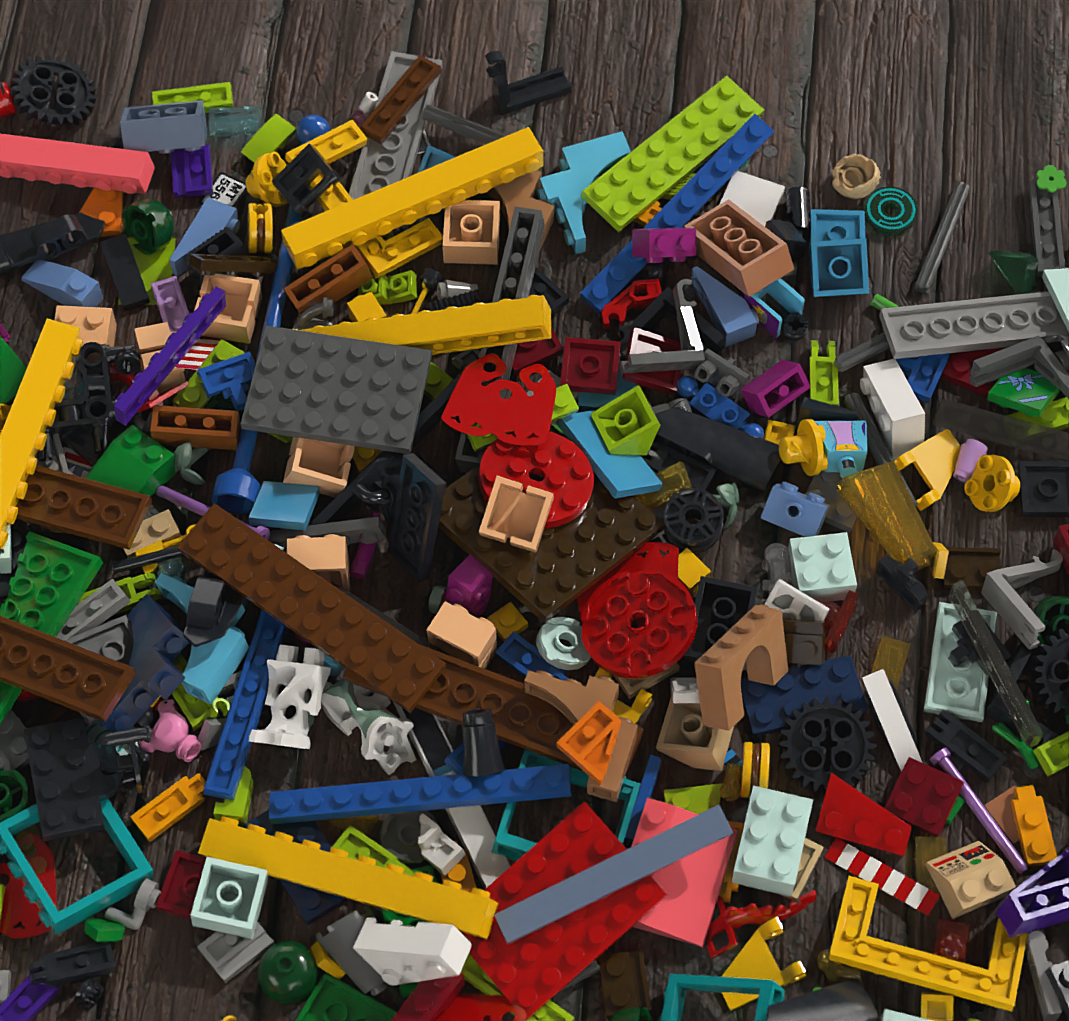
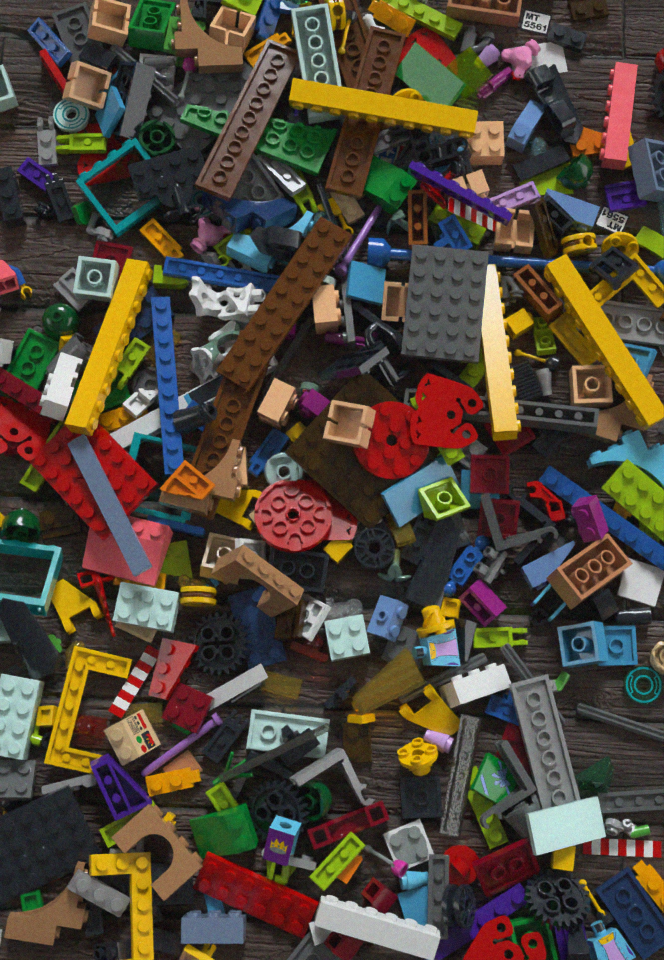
camera: 90 degrees right, 15 degrees up
(98, 271) = (538, 146): none -> clear light blue plate

